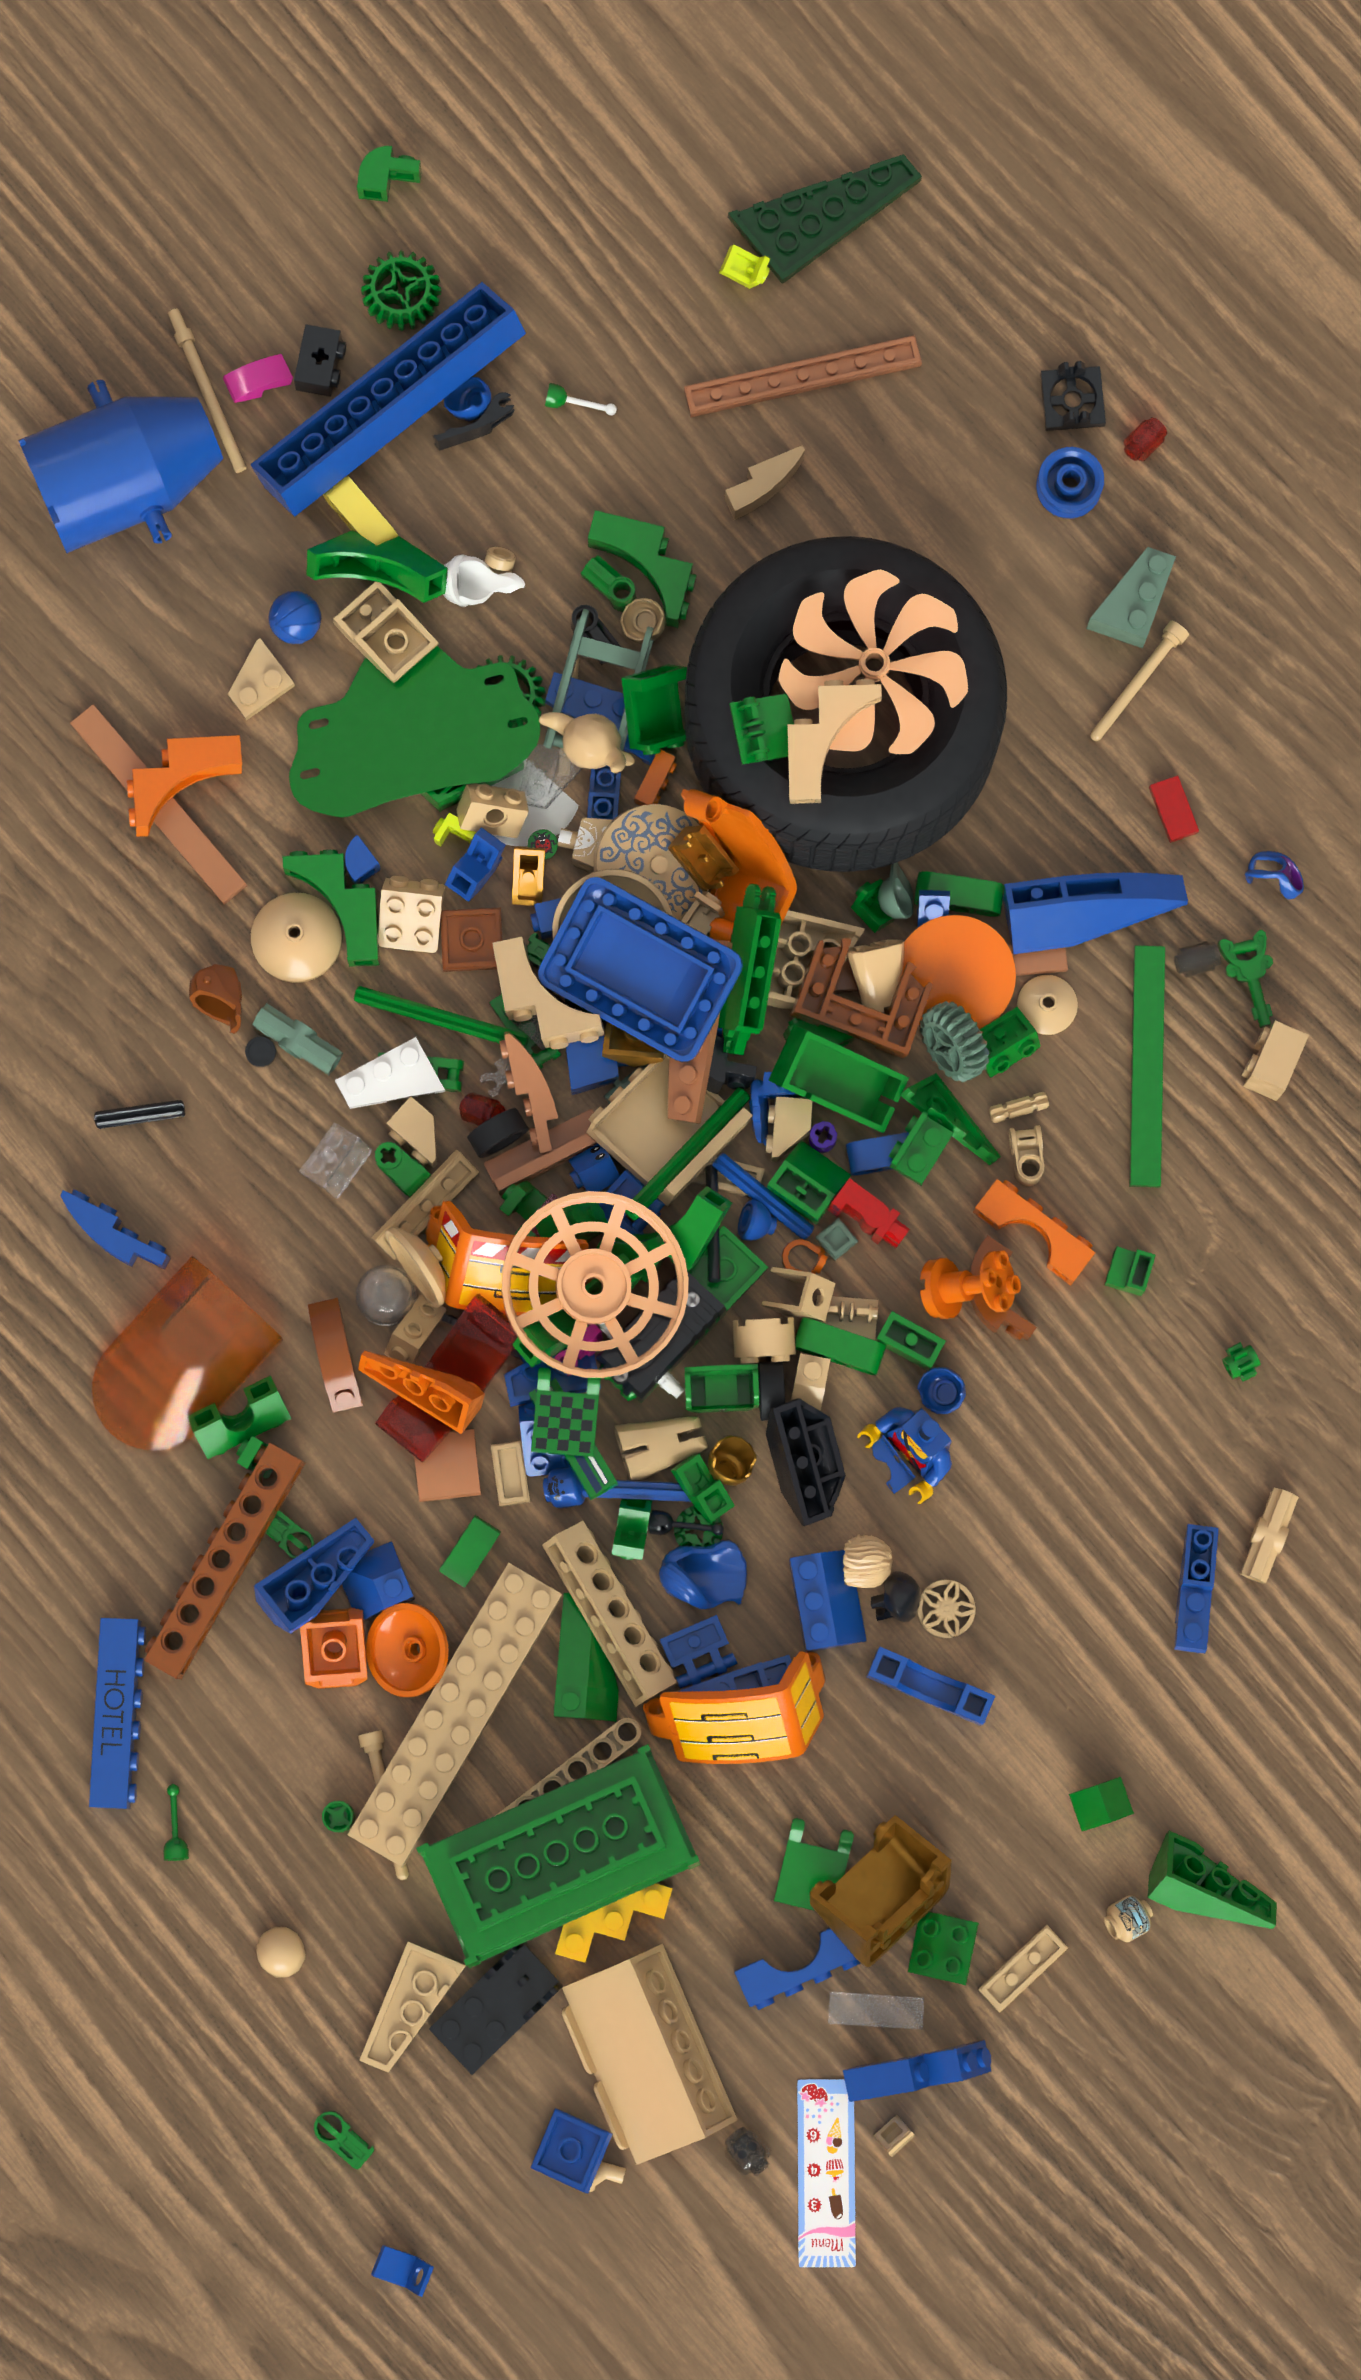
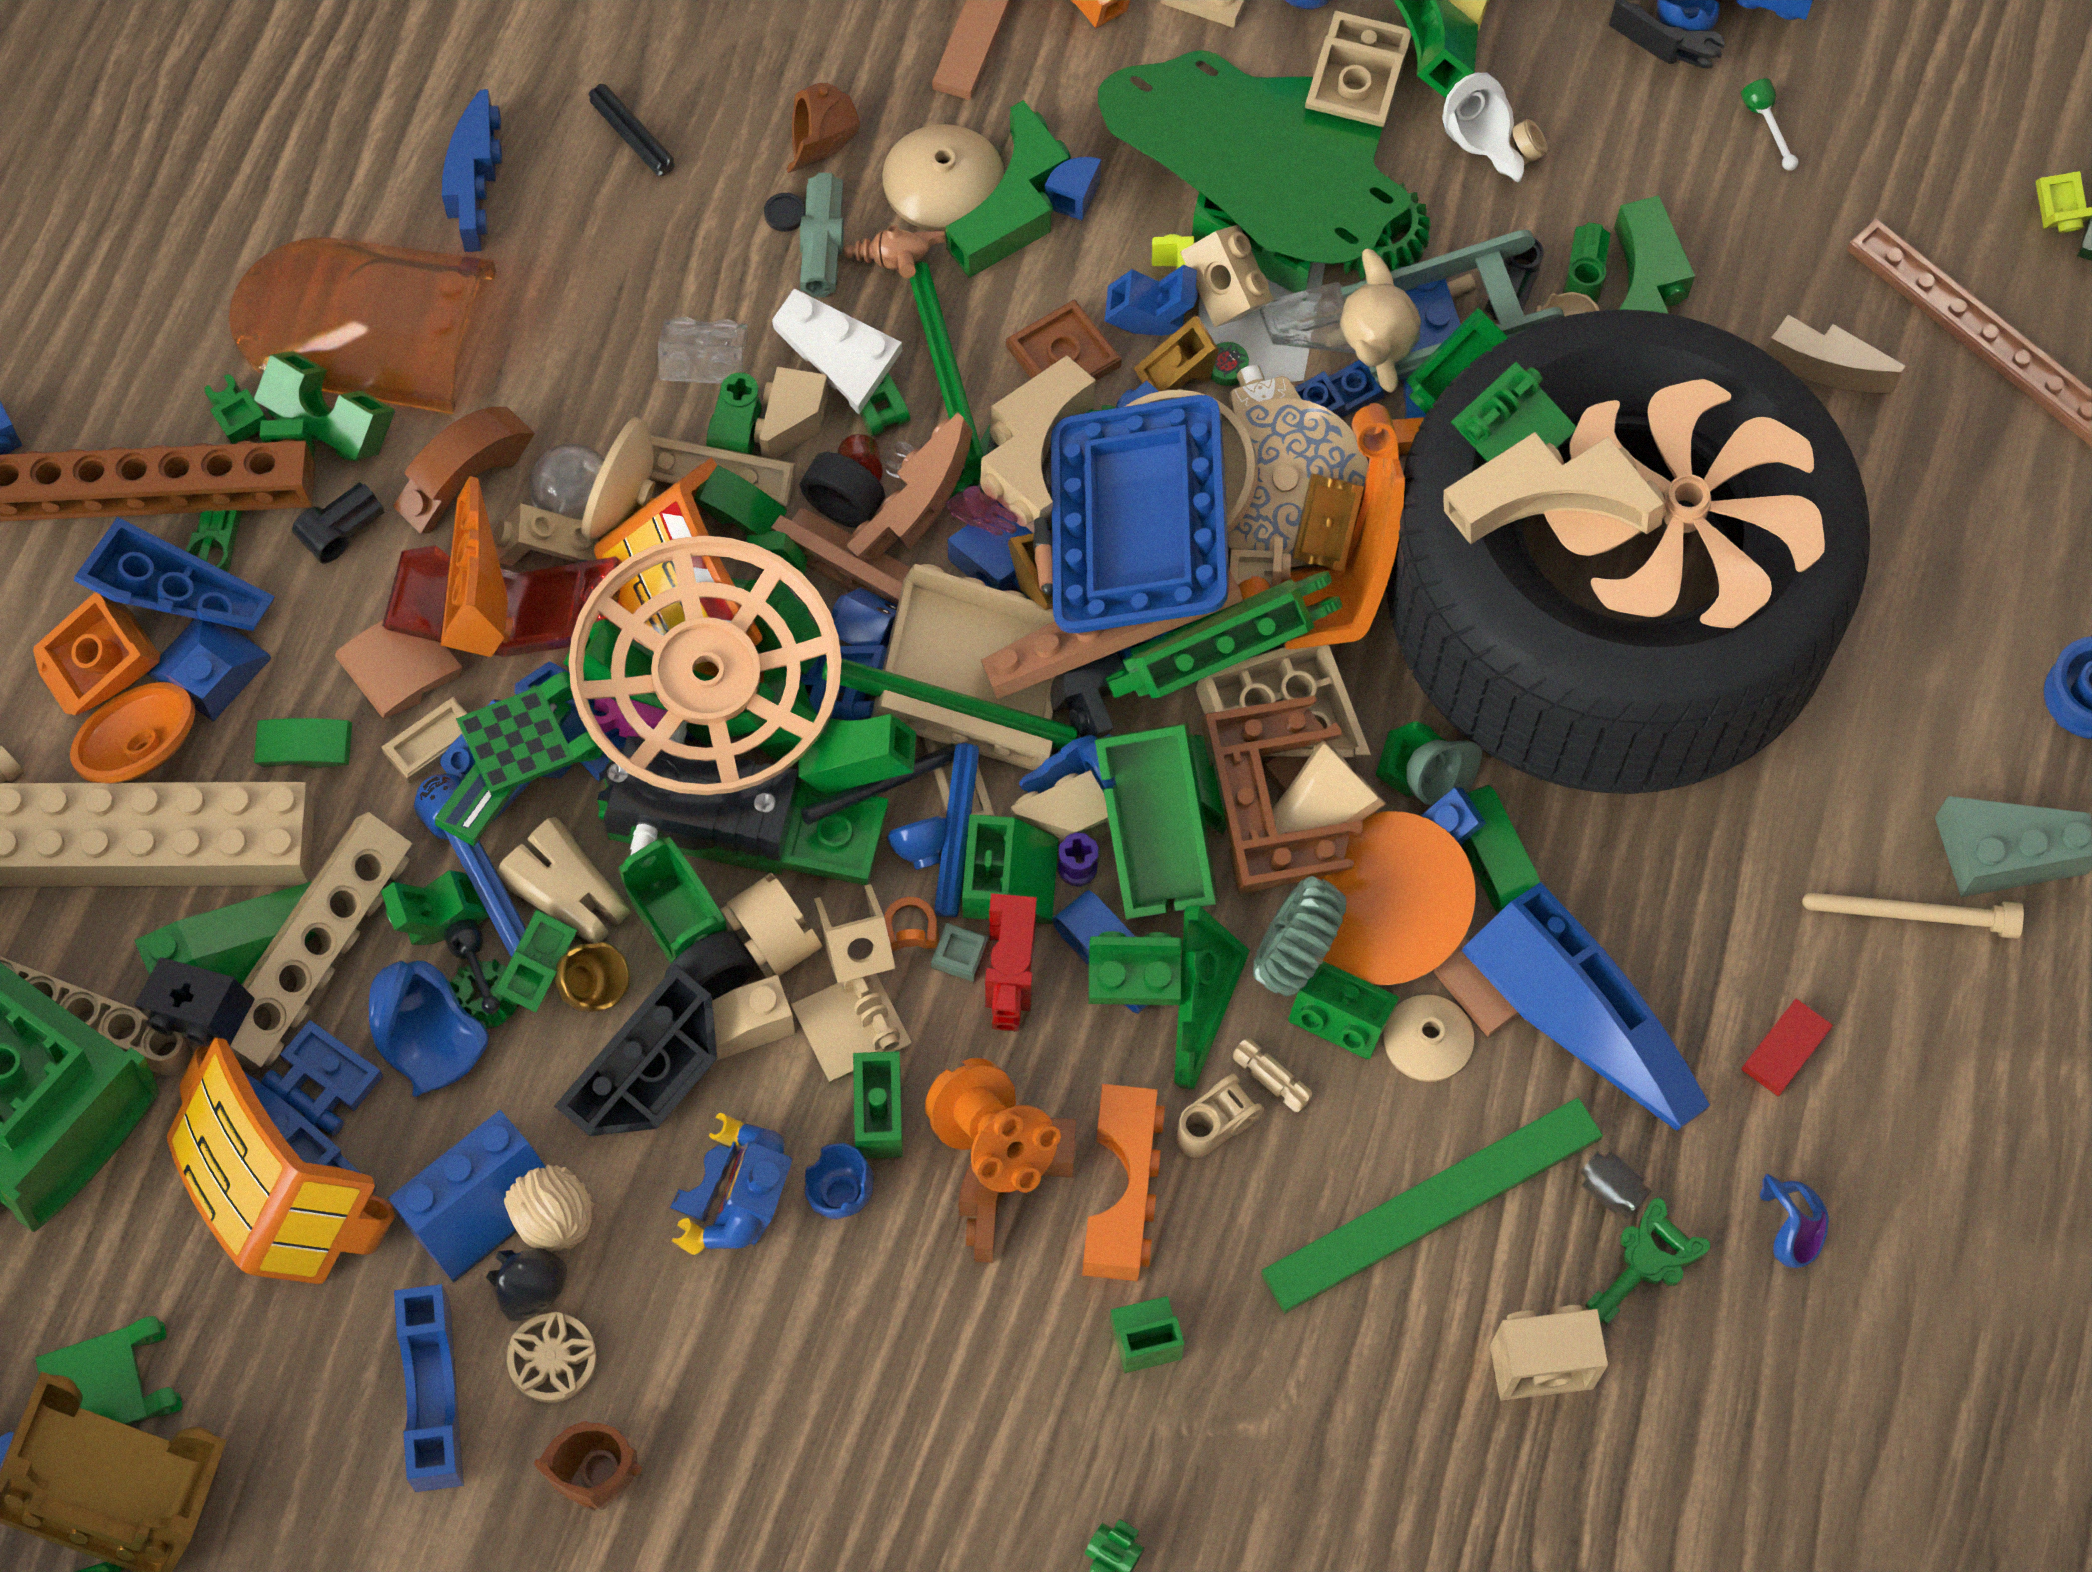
camera: 60 degrees right, 15 degrees down
(206, 1475) = (235, 411): none -> green plate
(326, 1459) = (328, 529): none -> black piece
(338, 999) = (895, 249): none -> nougat piece
(410, 914) = (1048, 268): bracket -> none
(472, 1196) = (738, 502): none -> green slope
(567, 1059) = (980, 510): none -> clear pink piece
(607, 1705) = (193, 1002): none -> black brick
(629, 1041) = (1043, 554): none -> piece
(839, 1346) = (819, 1023): green beam -> none
(1030, 1619) = (589, 1464): none -> dark orange helmet

